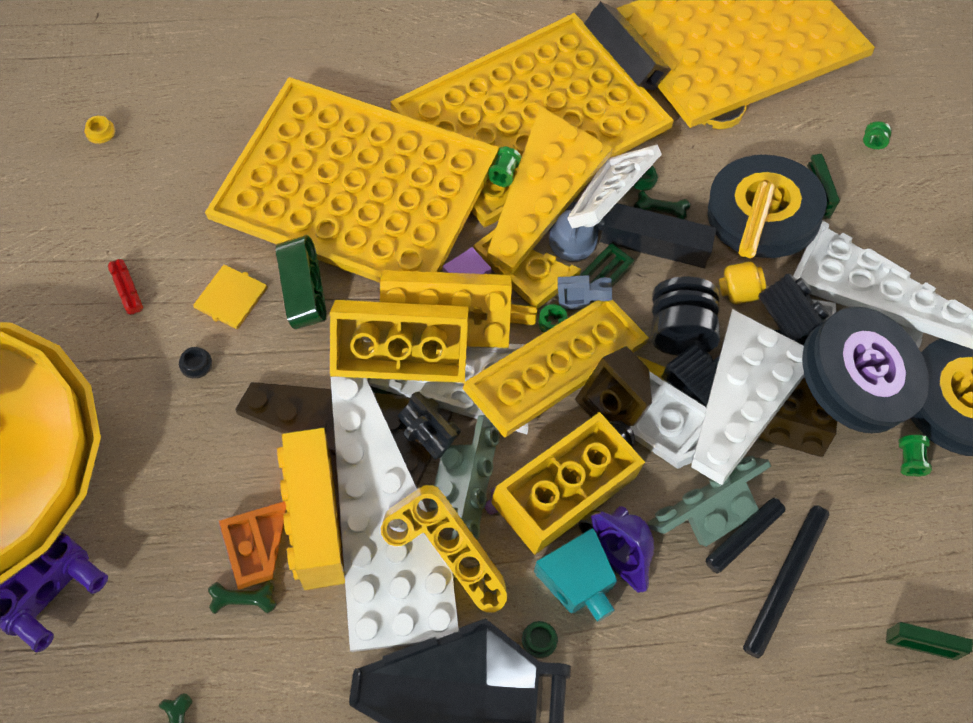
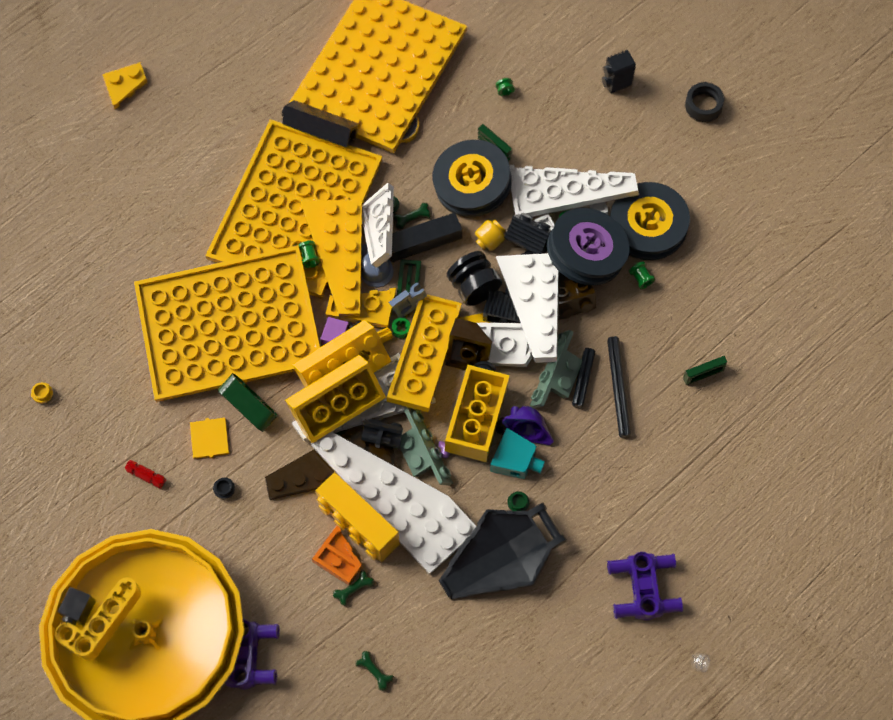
camera: 30 degrees left, 5 degrees up
(450, 550) = (446, 487): yellow beam -> none
(756, 219) = (475, 194): yellow axle -> none

